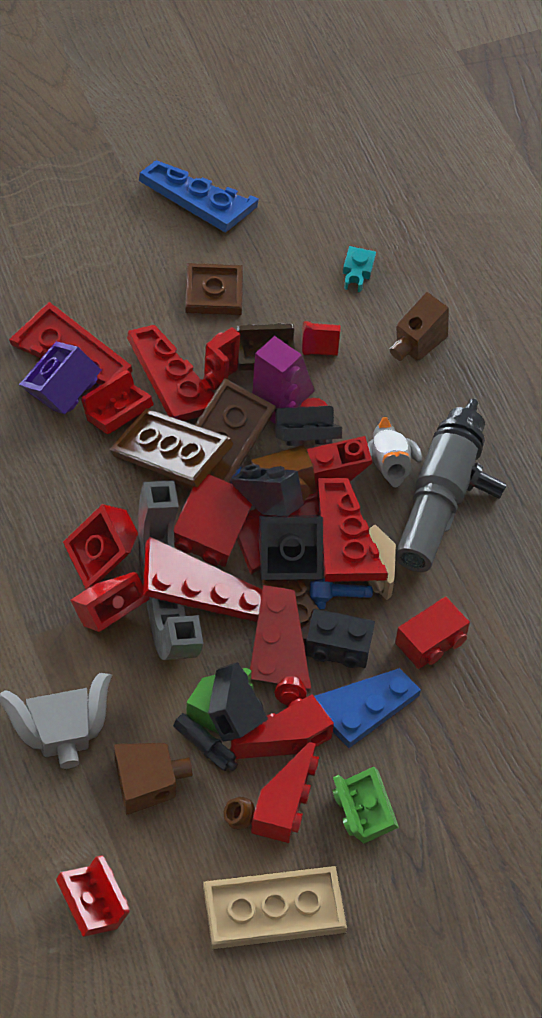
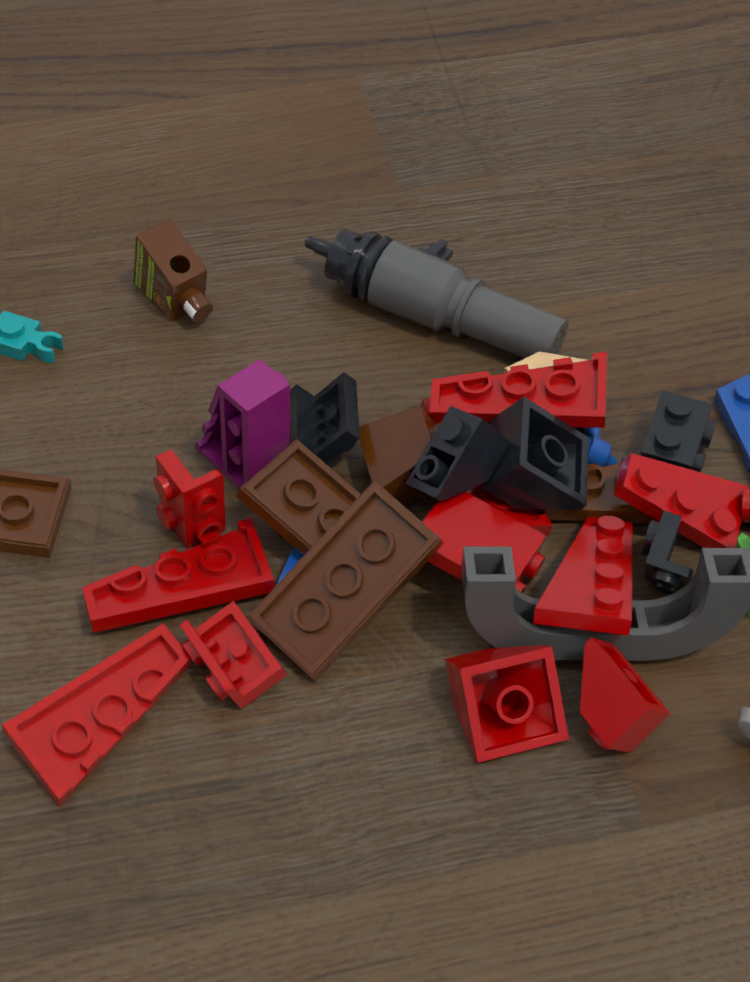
camera: 80 degrees left, 5 degrees down
(61, 377) = (167, 722): dark purple slope -> none
(222, 623) = (658, 547): none -> black bracket
(256, 336) = (149, 440): dark brown bracket -> none
(320, 338) = (152, 397): red tile -> none
(340, 459) = (390, 380): red slope -> none
(392, 452) = (376, 339): light grey animal -> none
(432, 633) = (666, 346): red brick -> none

